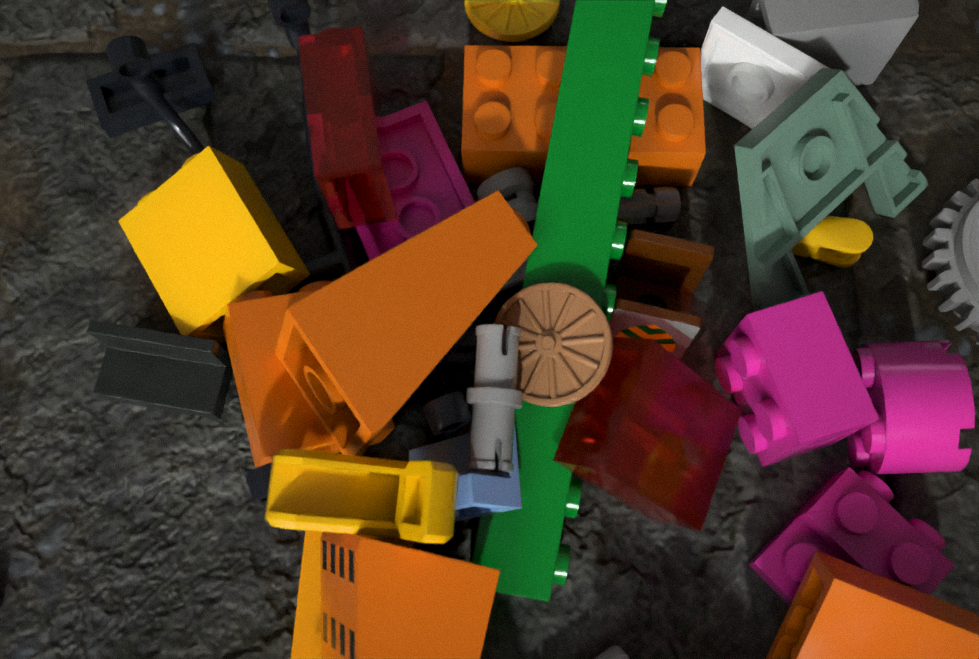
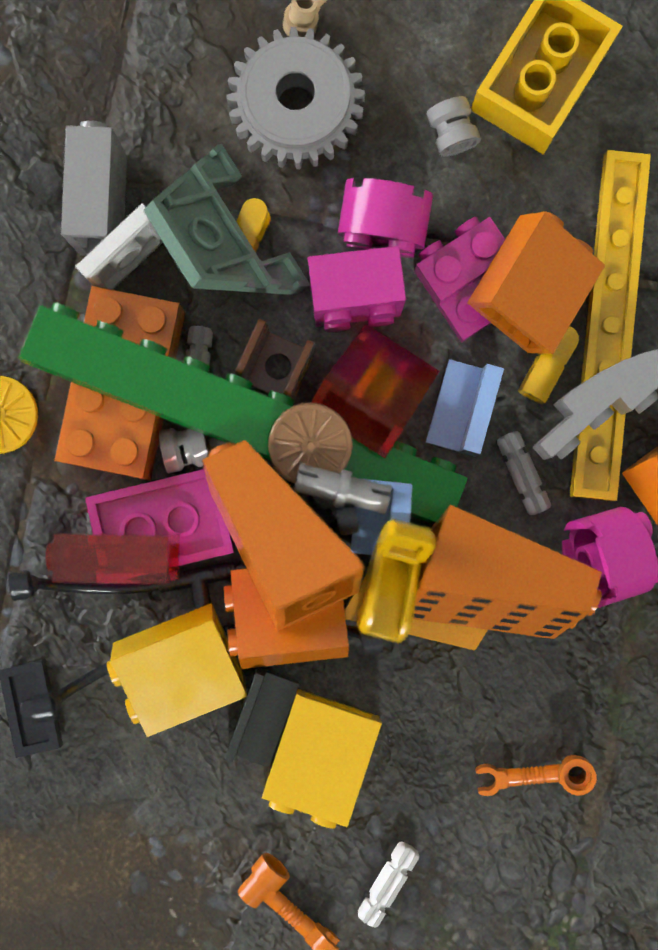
camera: 80 degrees left, 15 degrees up
(108, 462) = (321, 759): none -> yellow brick
(655, 583) = (464, 407): none -> light blue panel

